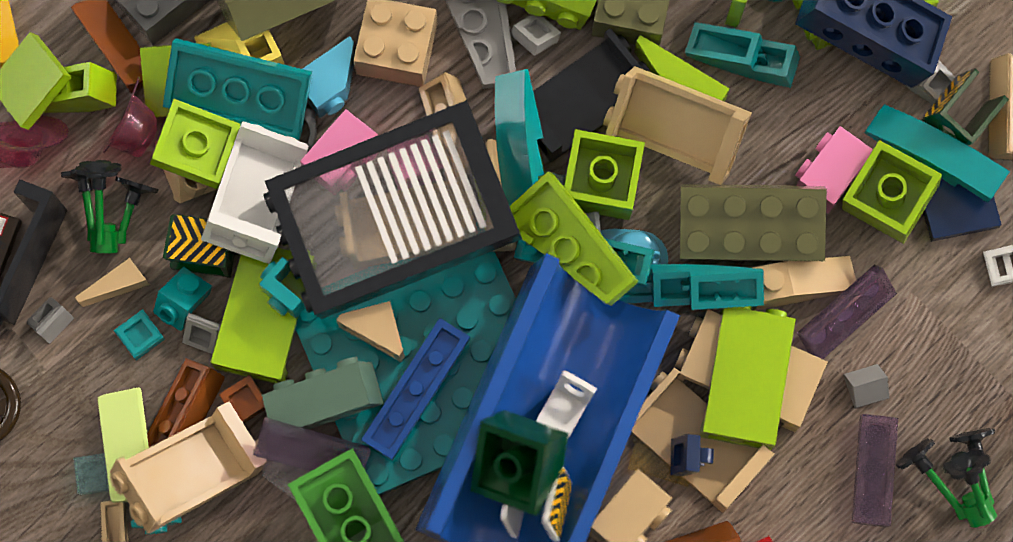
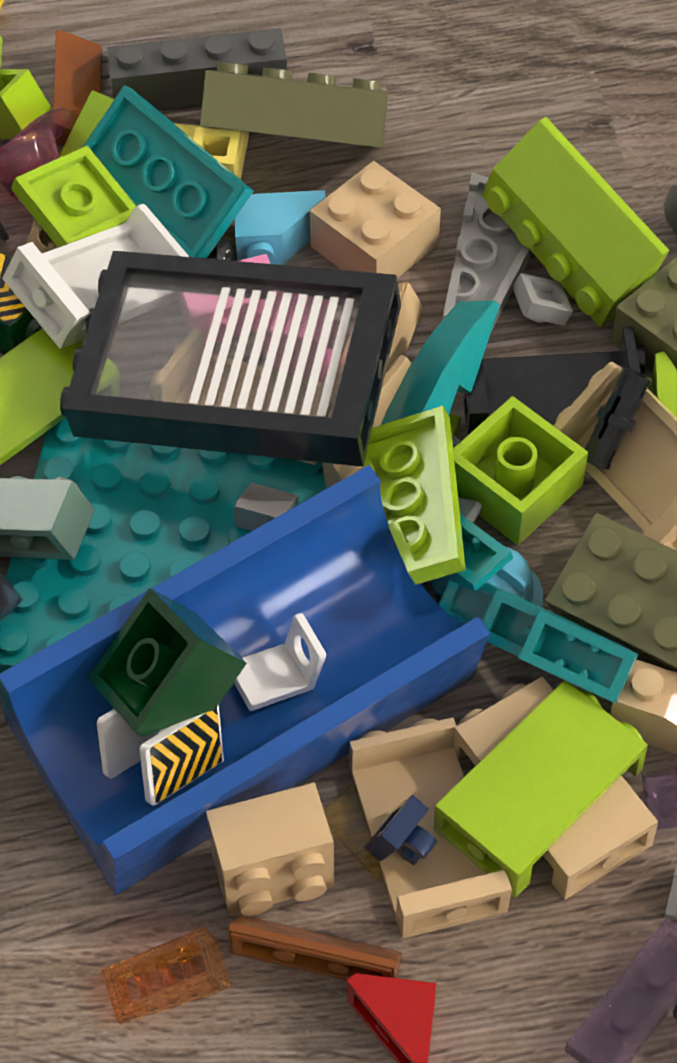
camera: 35 degrees right, 20 degrees down
(281, 298) = (49, 364): teal bracket -> none
(375, 327) = (129, 475): tan slope -> none
(415, 389) = (120, 567): blue plate -> none
(471, 294) = (261, 505): none -> light grey slope
(646, 87) = (616, 417): none -> black pin

